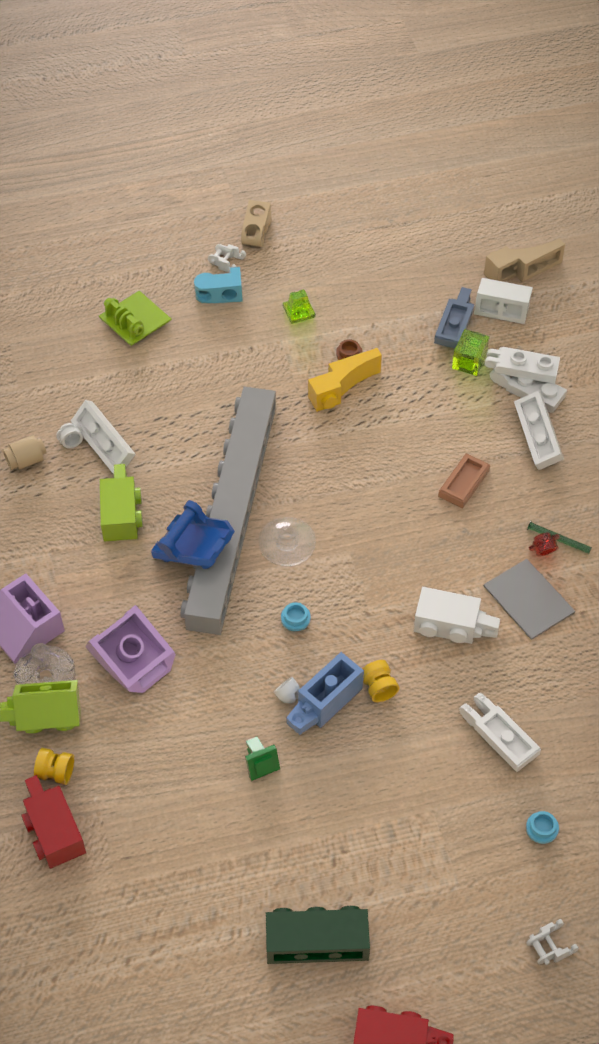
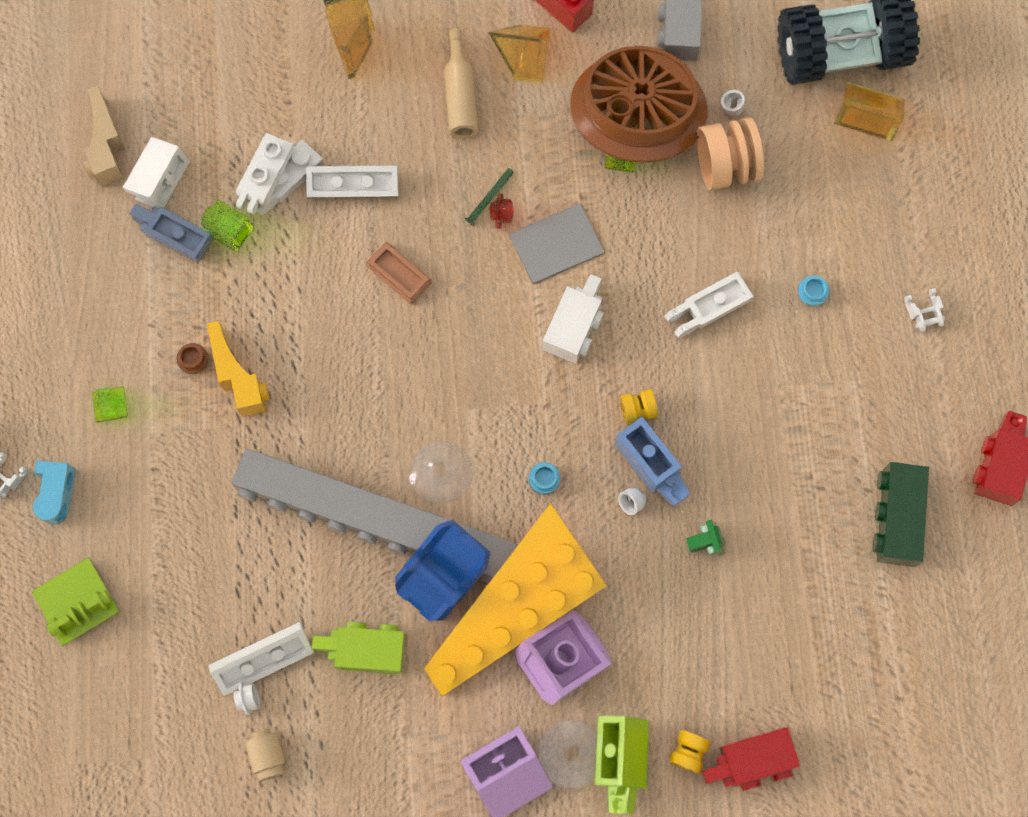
camera: 80 degrees left, 20 degrees up
(180, 606) = (530, 591): none -> yellow wing

